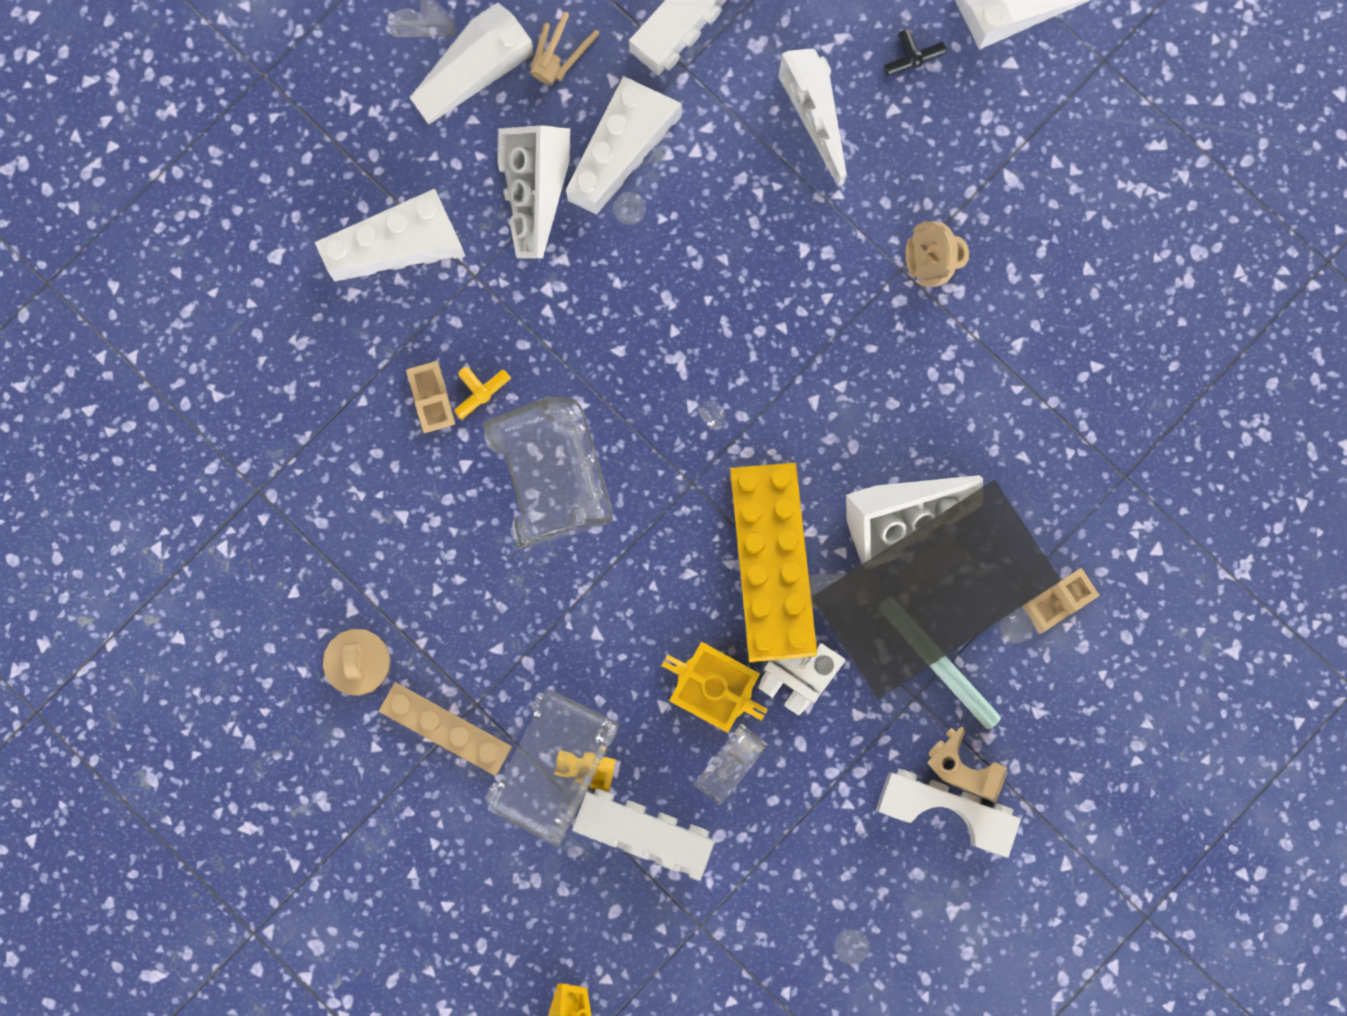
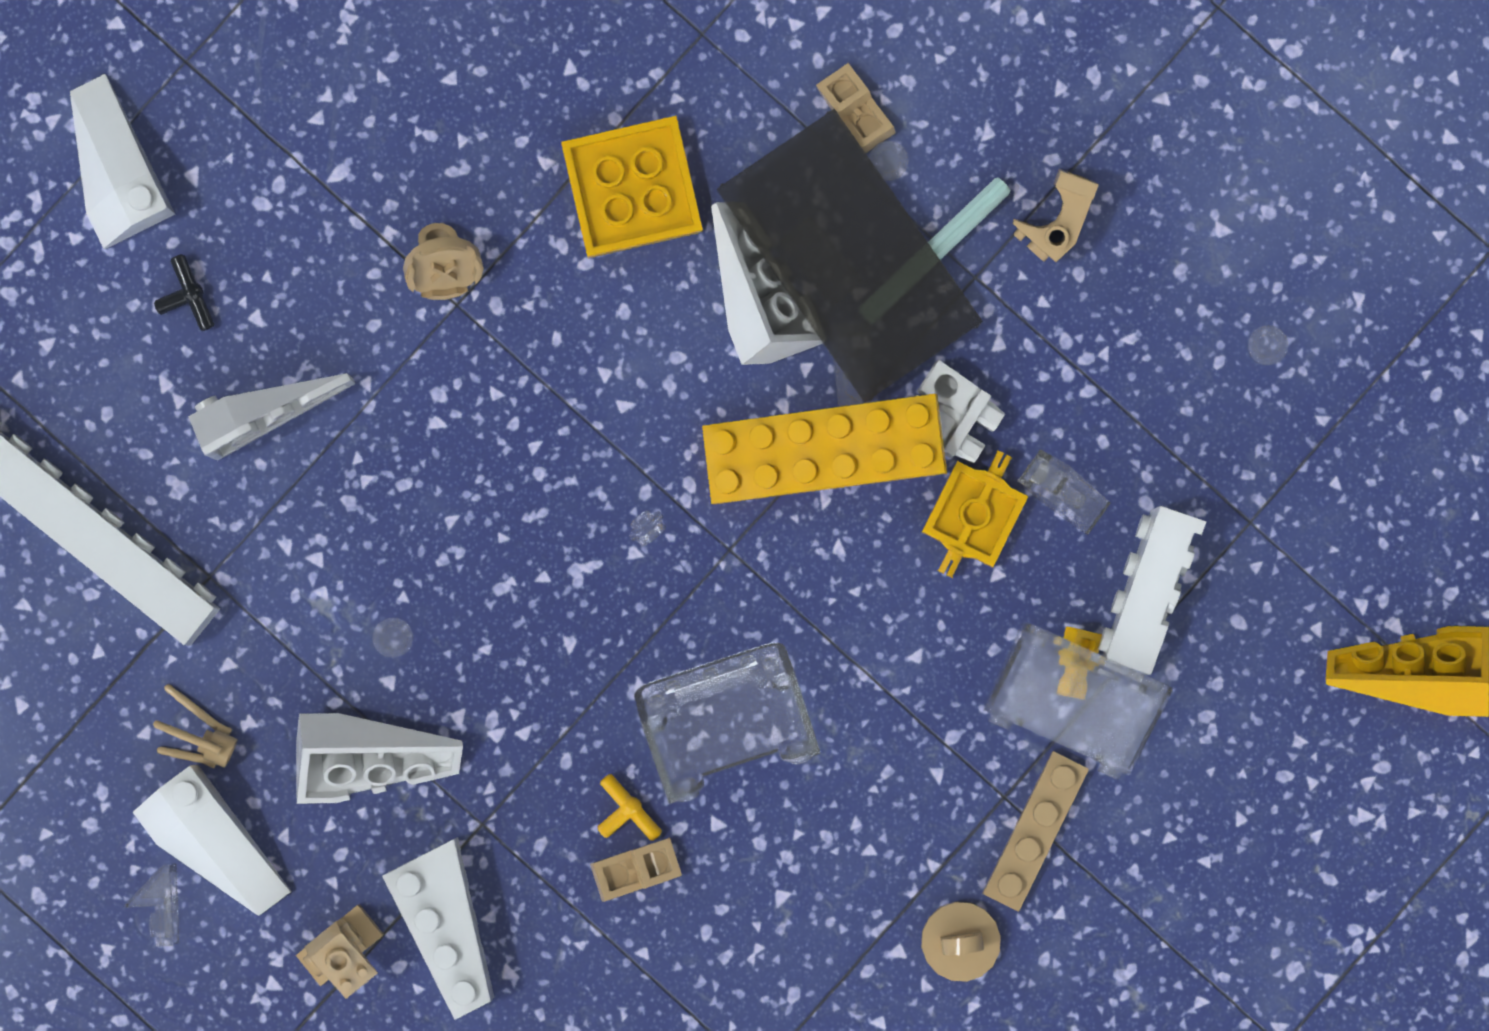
camera: 90 degrees left, 5 degrees up
(376, 148) = (339, 952): none -> tan tile
(624, 136) = (305, 646): white wedge -> none
(988, 827) = (1125, 189): white arch -> none
(996, 412) = (632, 187): none -> yellow plate

